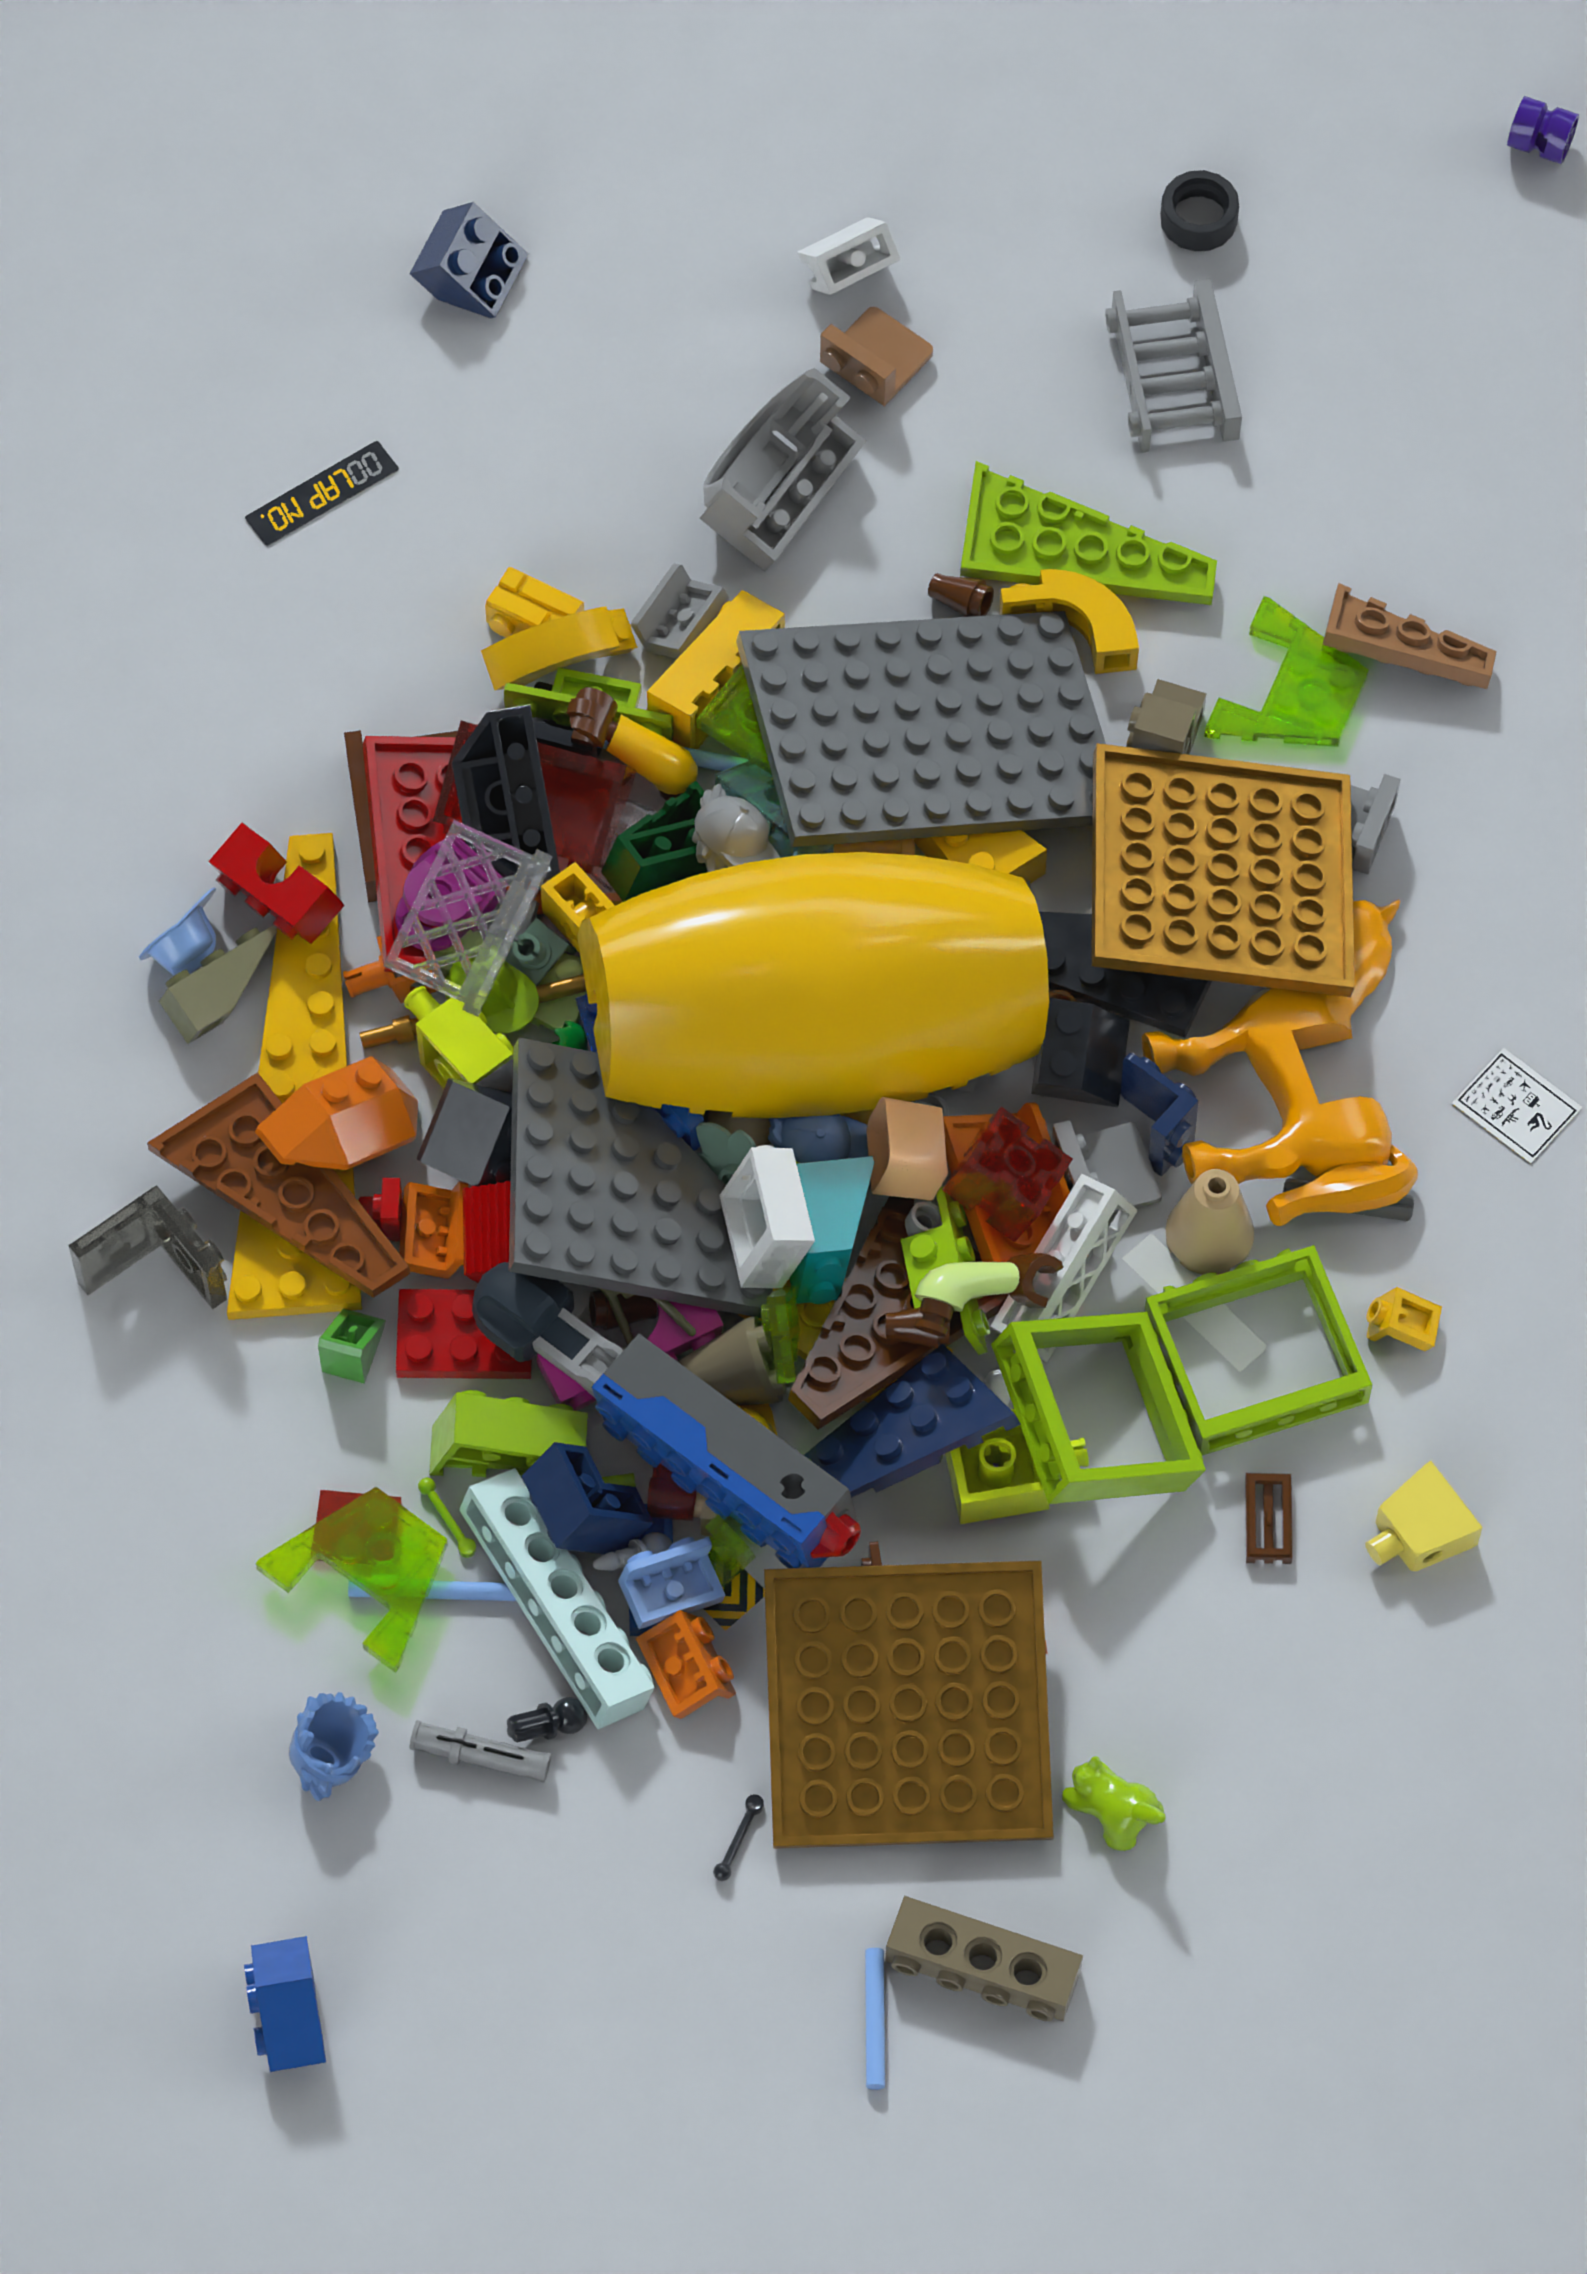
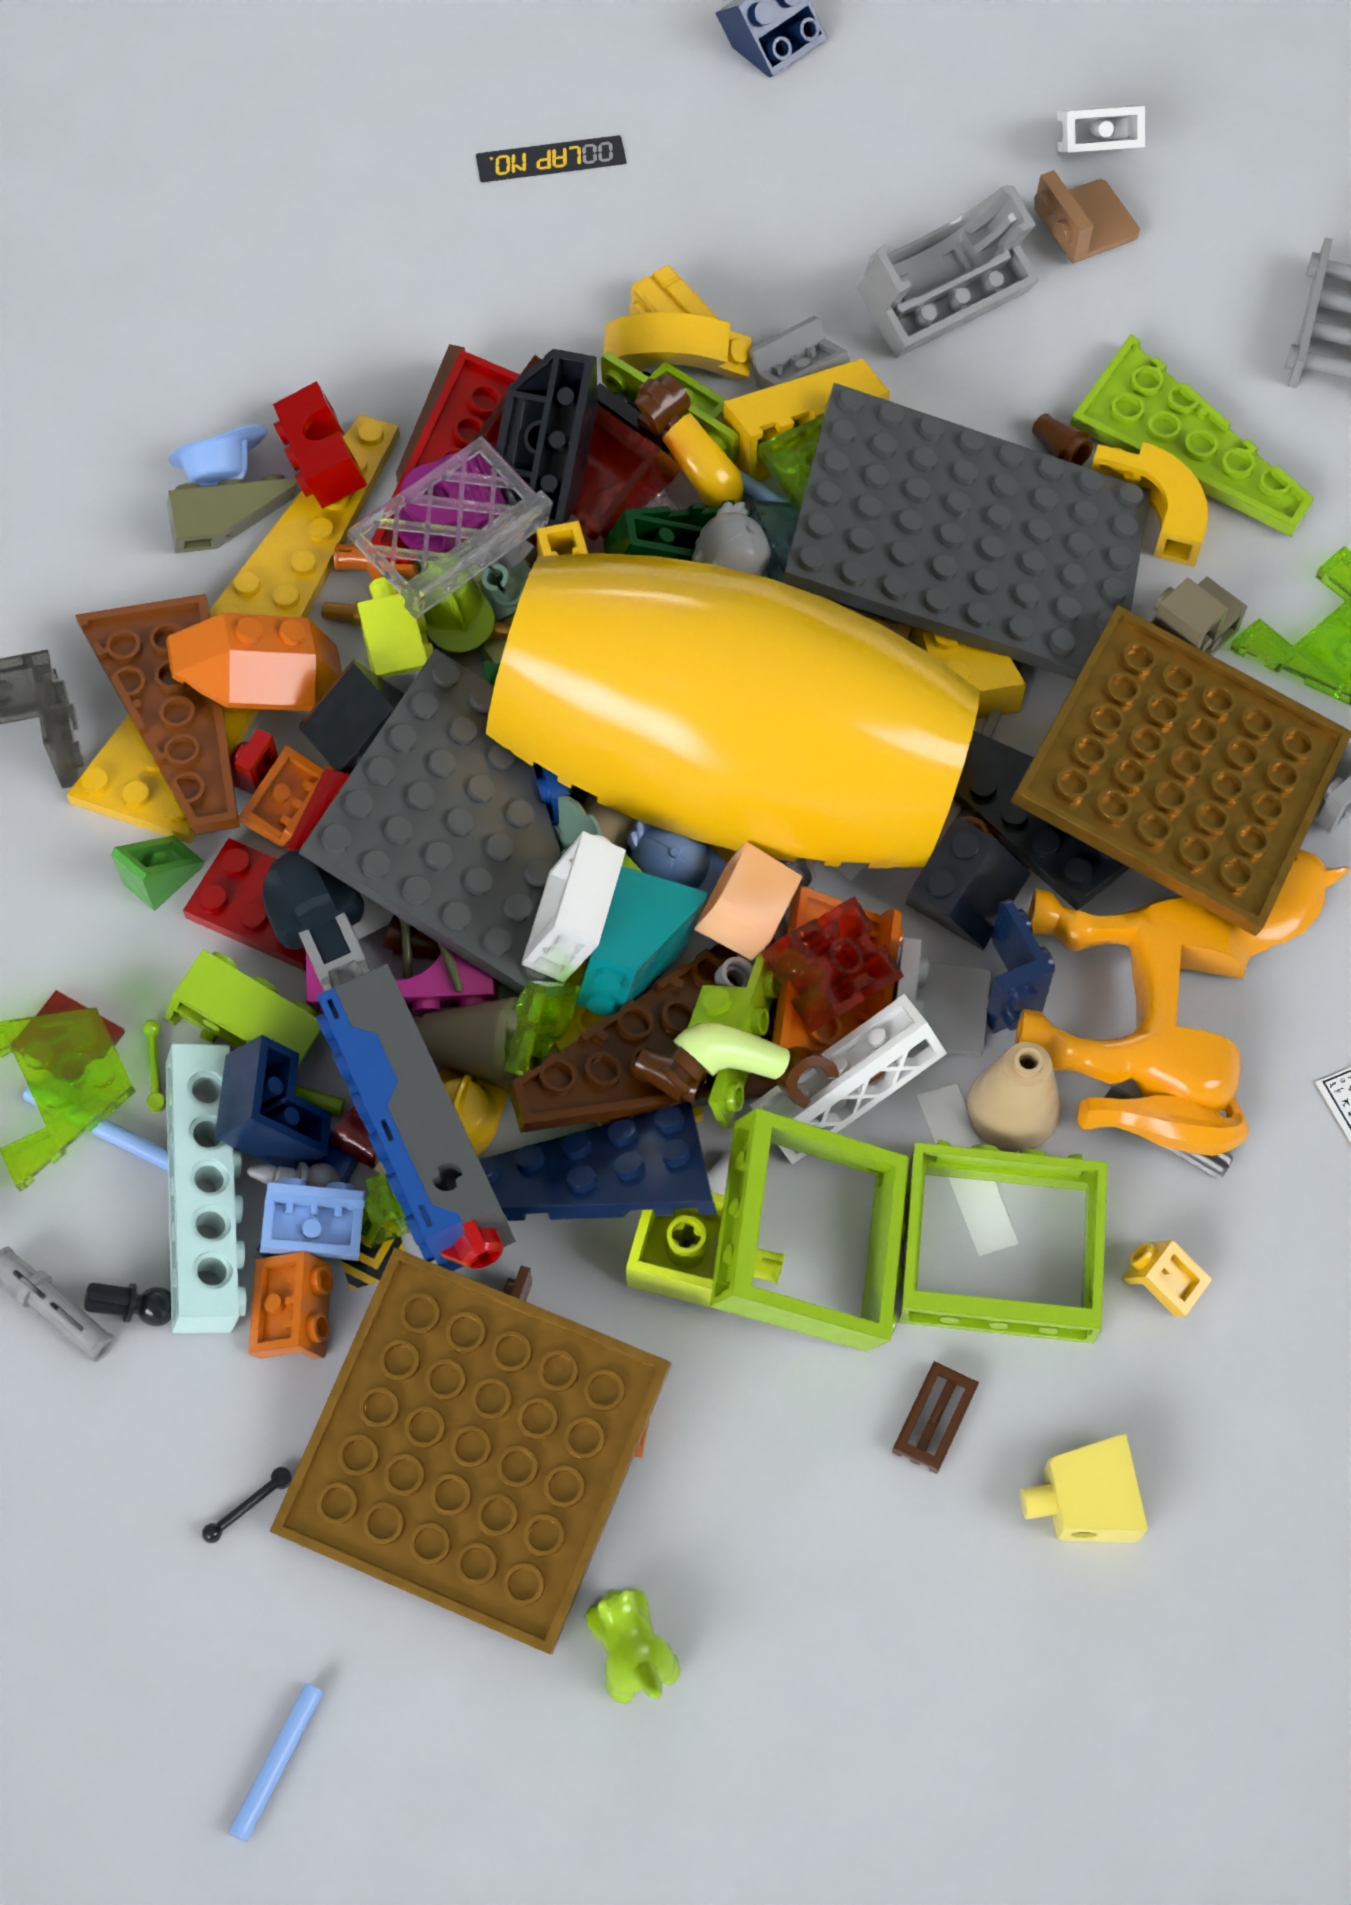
camera: 25 degrees right, 0 degrees up
(967, 1937) = (366, 1684): dark tan brick -> none

